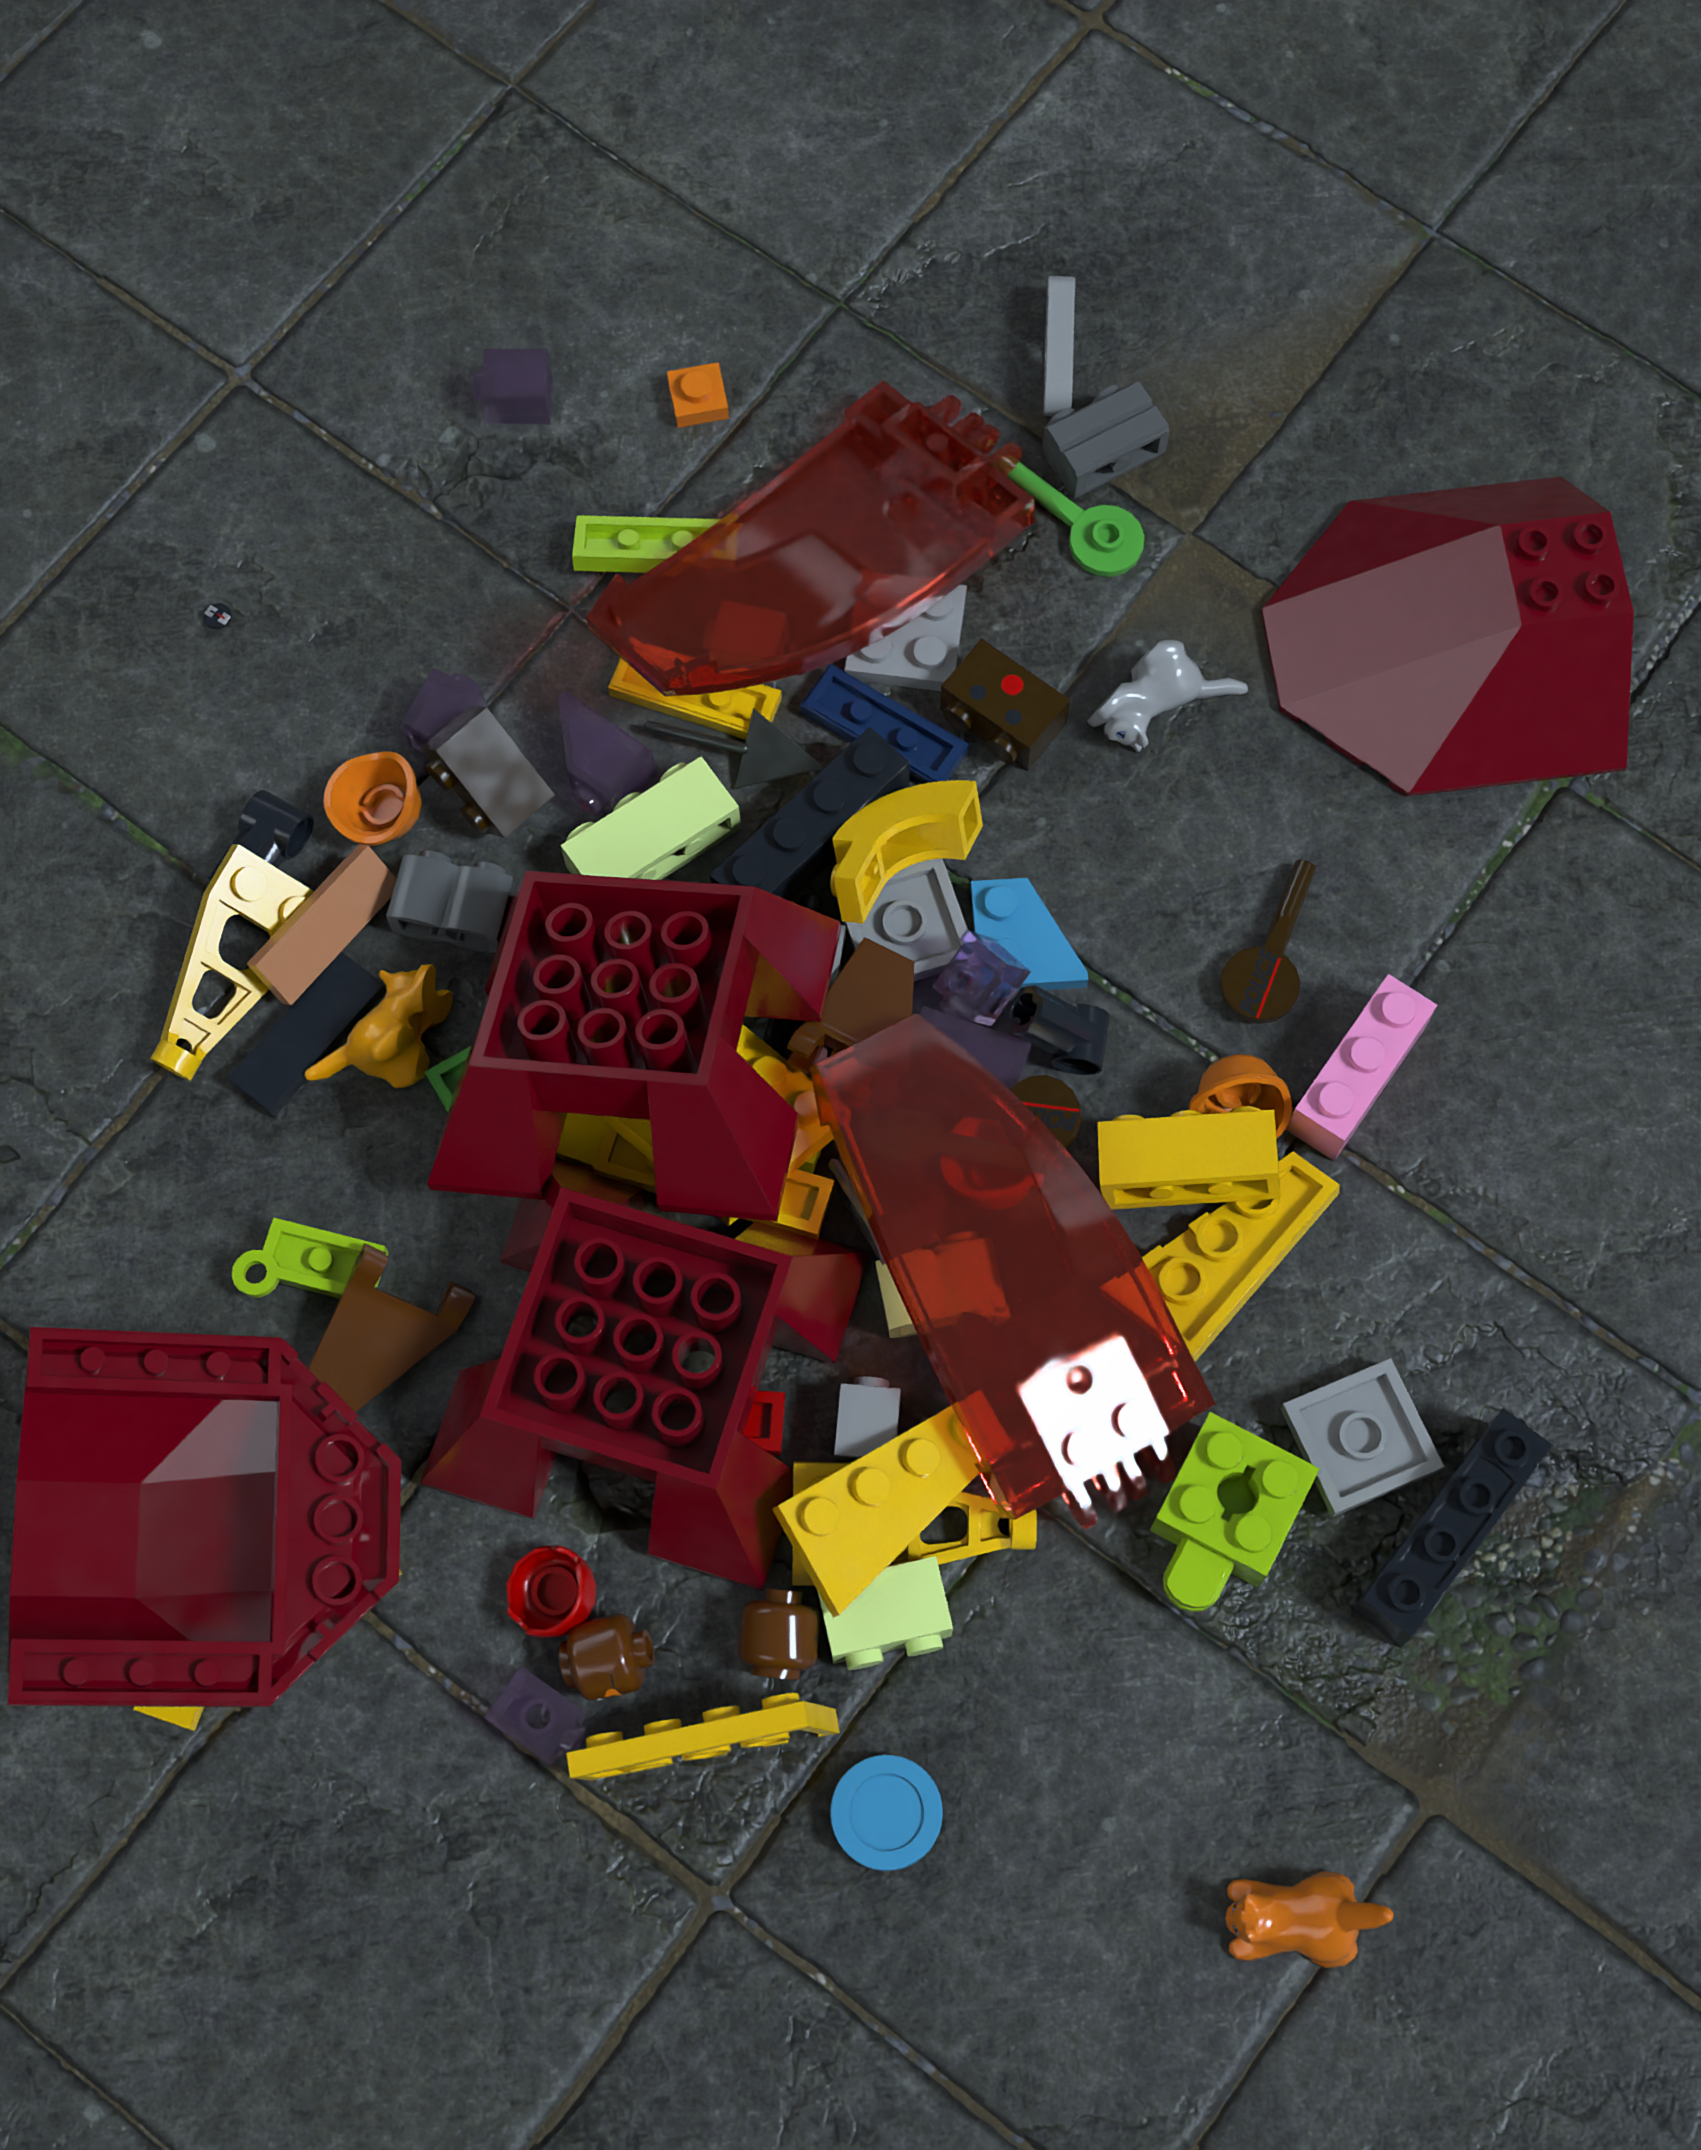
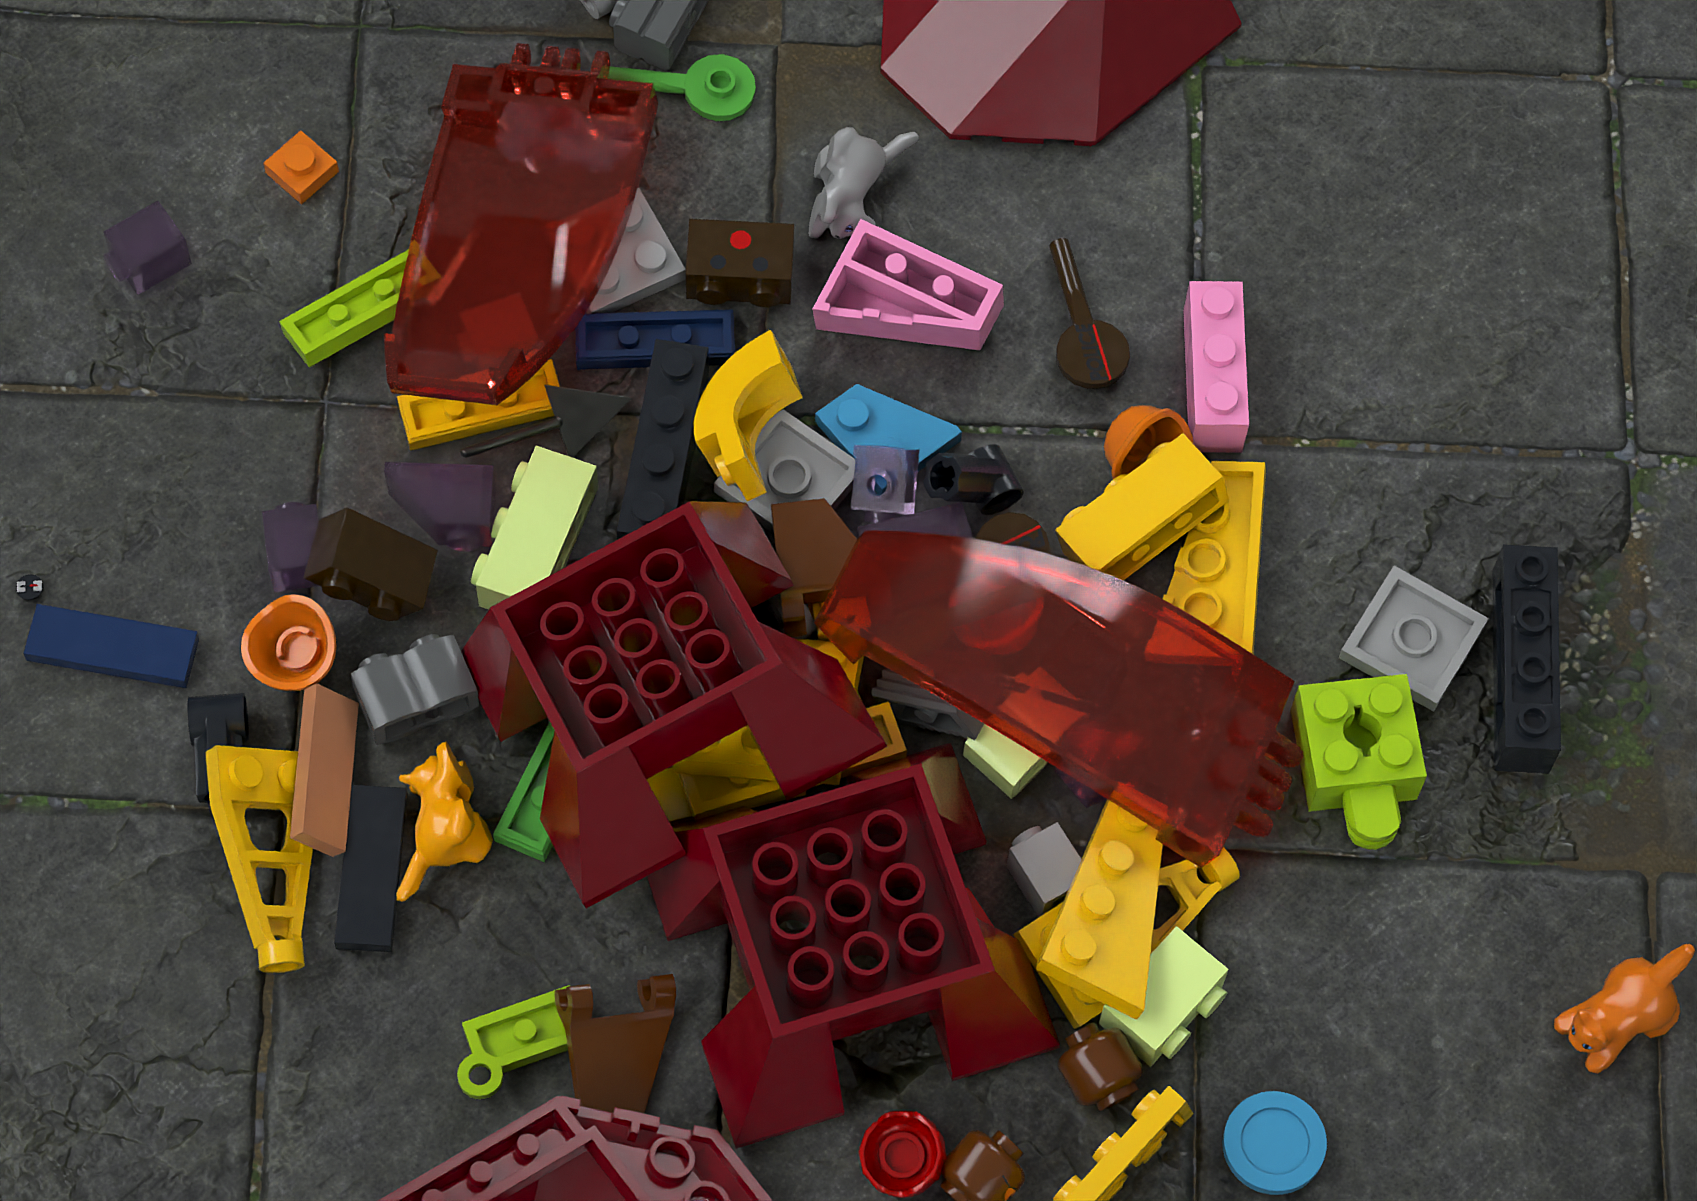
camera: 40 degrees left, 5 degrees down
(243, 707) = (111, 646): none -> dark blue tile
(1124, 823) = (906, 294): none -> bright pink wedge

